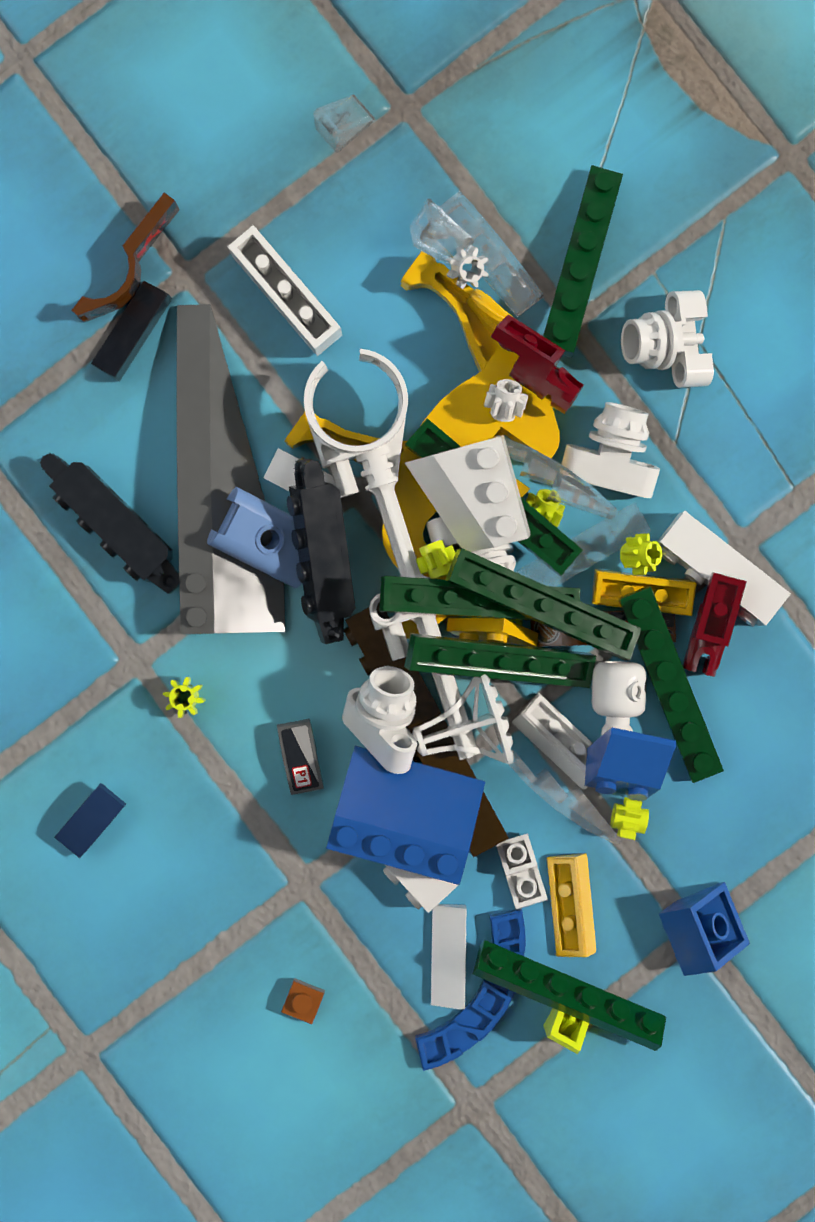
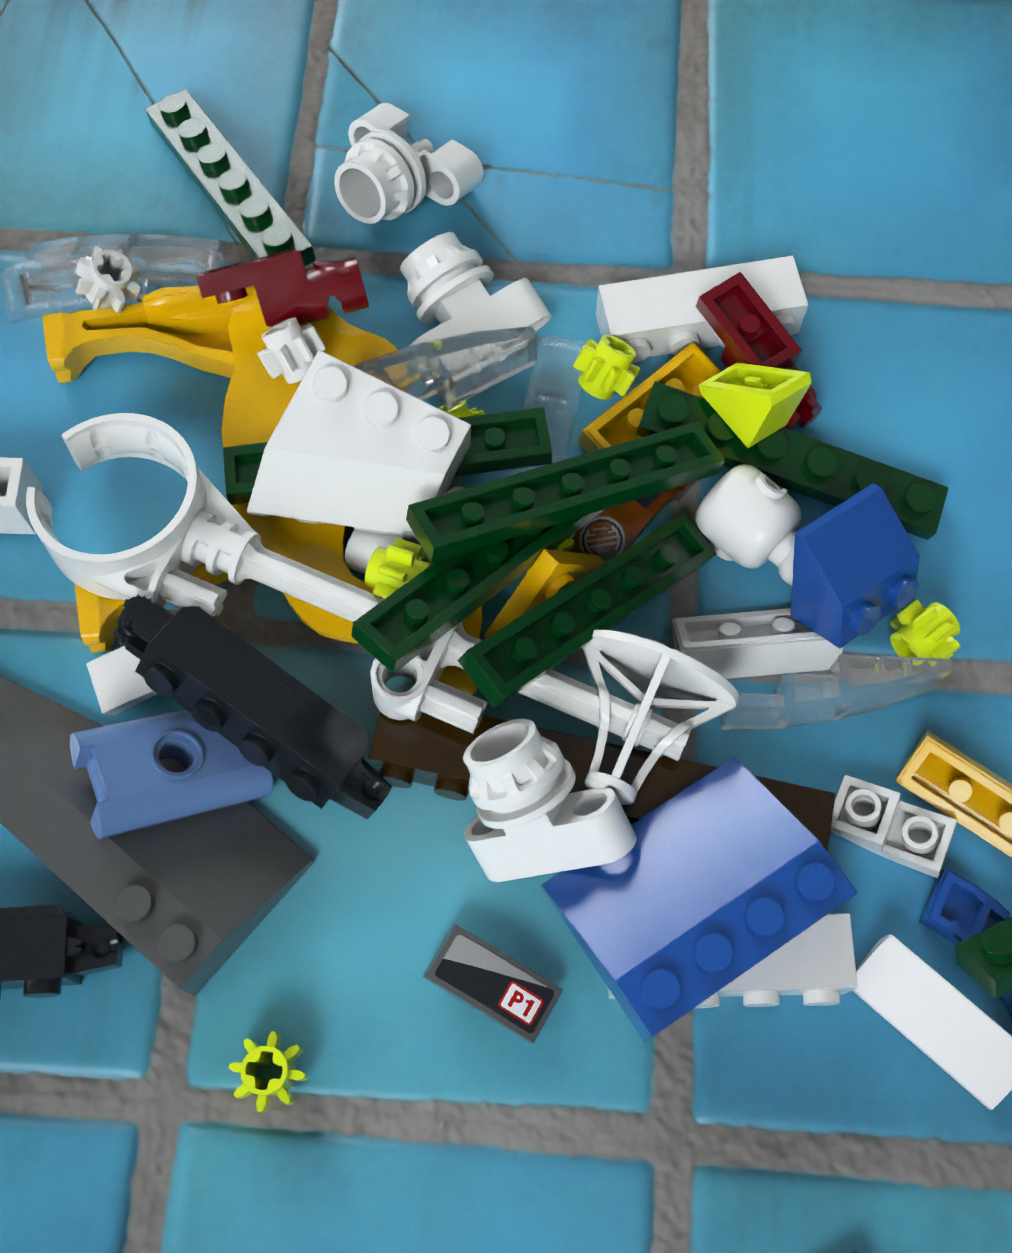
camera: 50 degrees left, 20 degrees down
(678, 643) = (755, 398): none -> neon yellow slope

